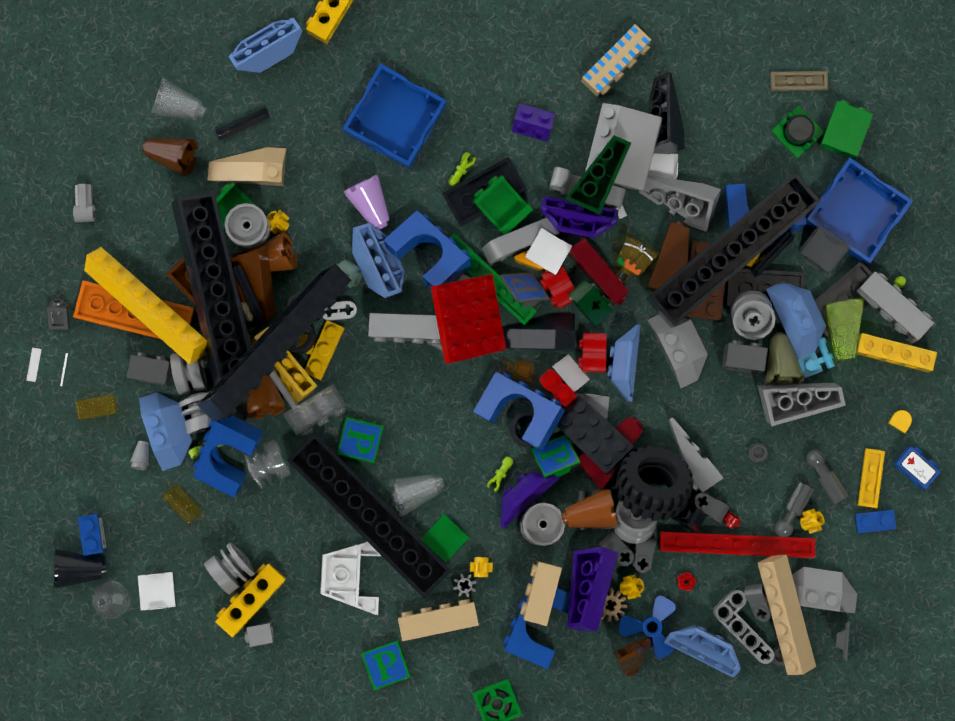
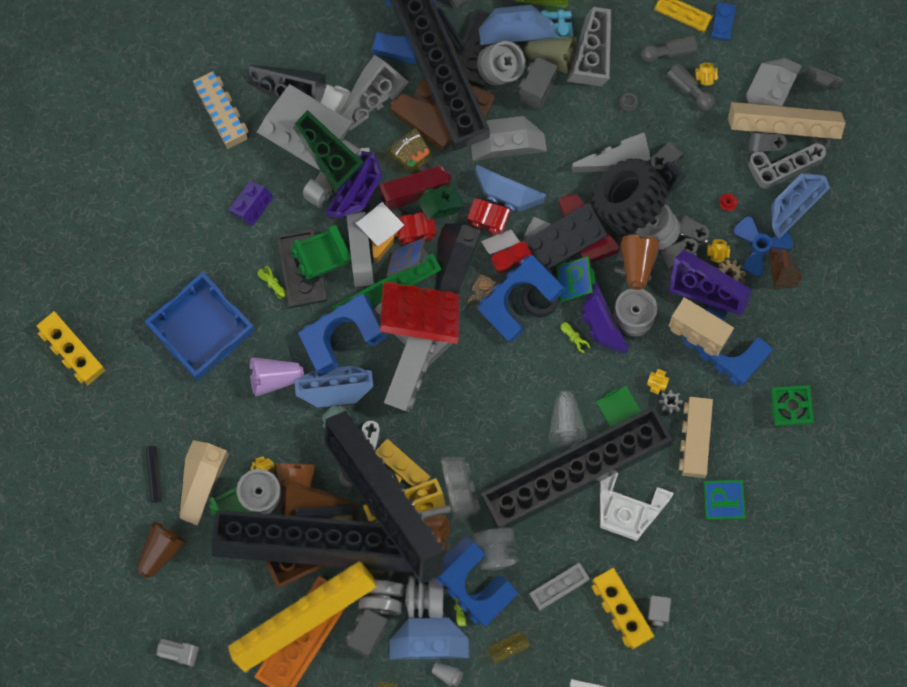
camera: 70 degrees left, 10 degrees down
(176, 102) = (110, 529): clear cone -> none
(229, 568) = (586, 617): light grey wheel -> none
(254, 534) = (559, 586): none -> light grey plate
(267, 46) = (86, 423): medium blue wedge -> none
(360, 440) = (500, 456): piece -> none
(731, 520) = (684, 144): red plate -> none
(737, 544) = (707, 147): red plate -> none

